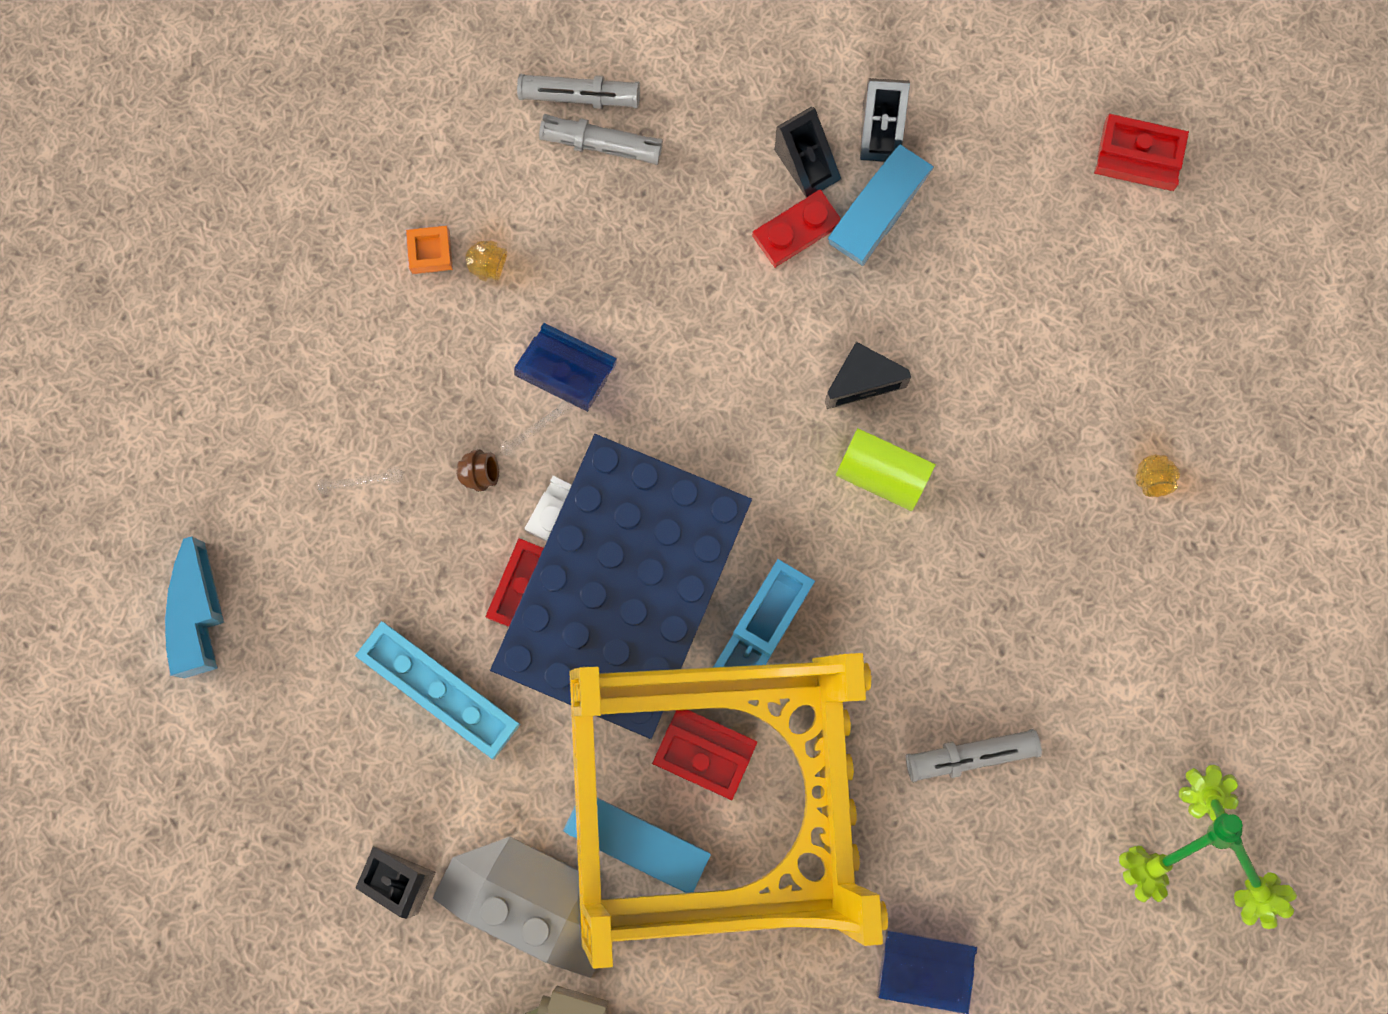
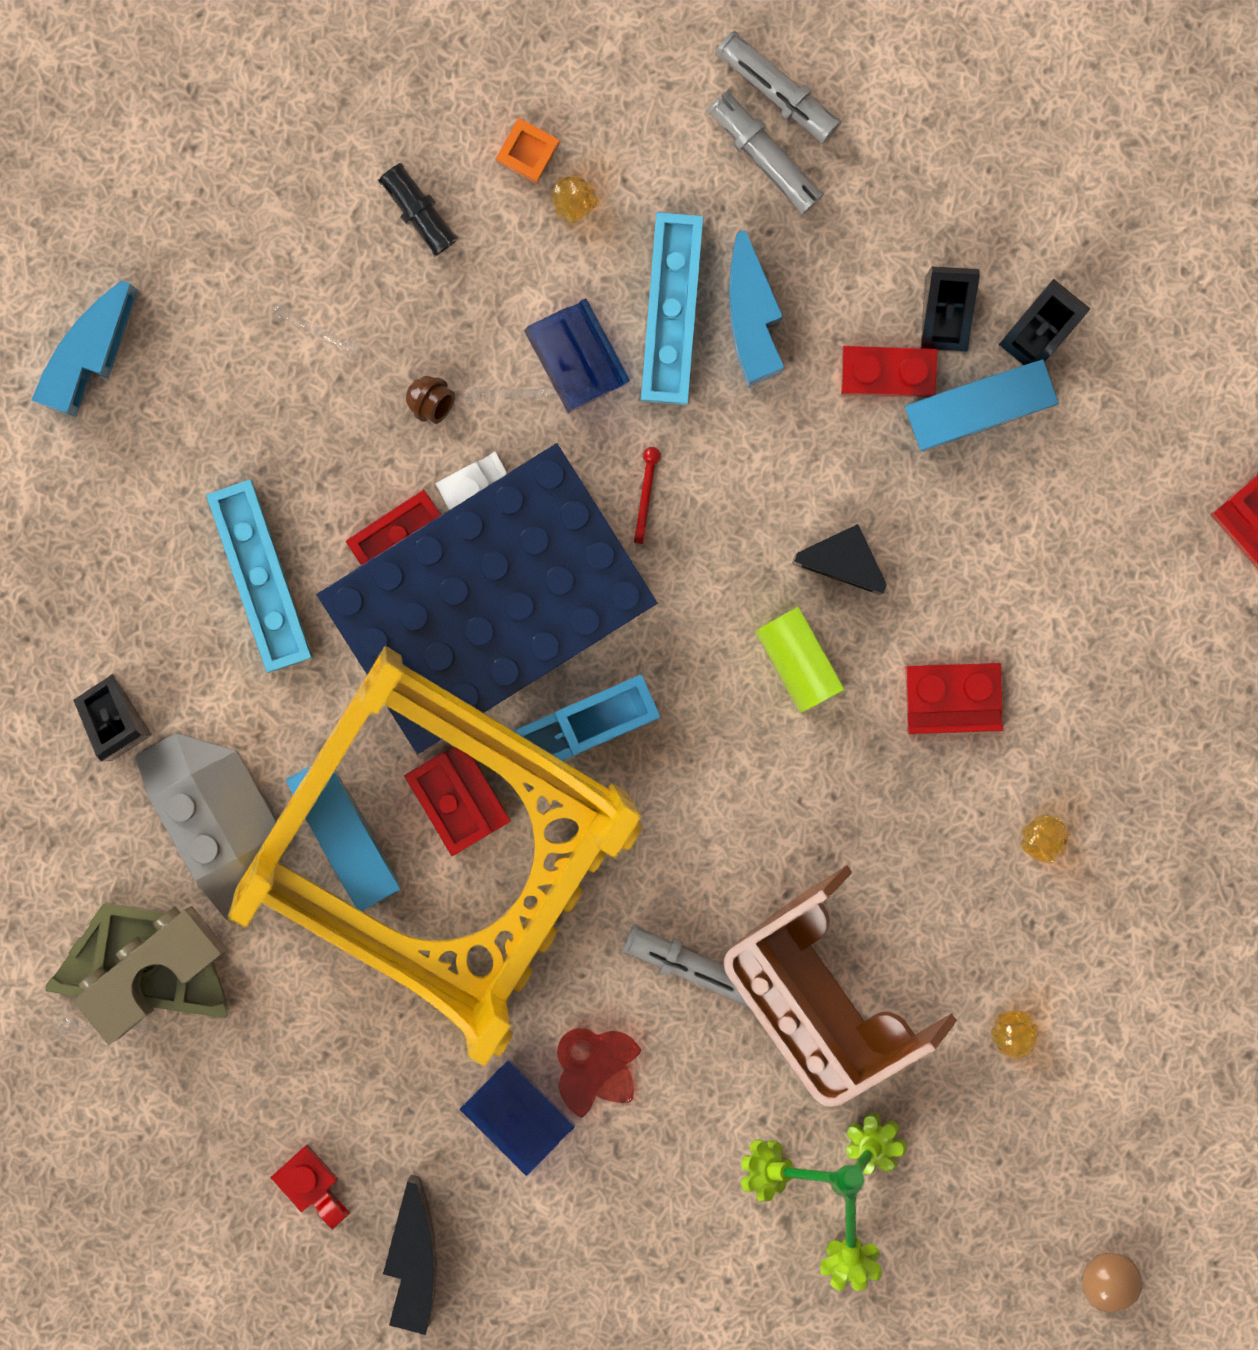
camera: 35 degrees right, 10 degrees up
(376, 343) = (417, 209): none -> black pin
(611, 289) = (671, 308): none -> medium azure plate
(671, 402) = (651, 457): none -> red hinge
(672, 252) = (750, 308): none -> dark azure slope
(964, 888) = (601, 1073): none -> clear red plate
(1014, 422) = (954, 698): none -> red plate
(1089, 730) = (810, 1013): none -> dark orange windscreen
(1247, 634) = (1014, 1033): none -> clear yellow plate

